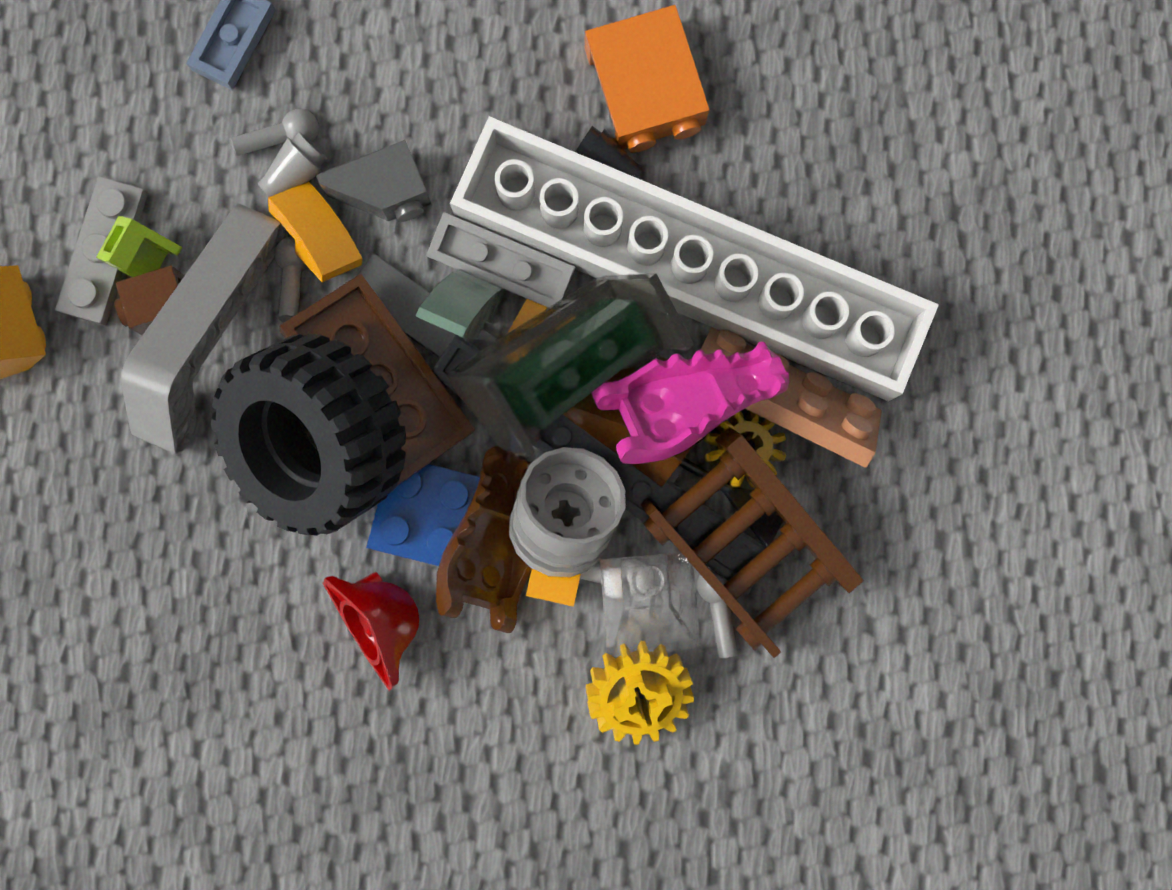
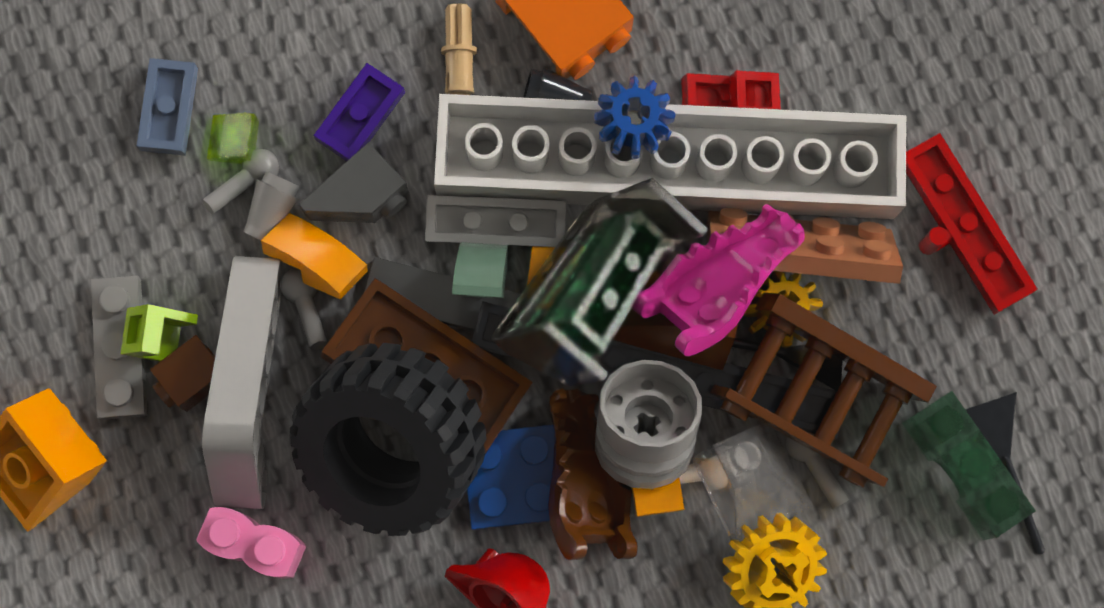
camera: 20 degrees left, 5 degrees down
(148, 476) = (241, 538): none -> bright pink brick
(283, 89) = (233, 137): none -> clear neon green slope
(411, 108) = (359, 112): none -> dark purple plate
(529, 82) = (459, 50): none -> tan axle
(684, 216) = (649, 109): none -> blue gear
(785, 220) = (738, 90): none -> red slope
(871, 682) = (983, 483): none -> clear green arch
(905, 638) = (996, 424): none -> black piece
(956, 433) = (966, 225): none -> red plate

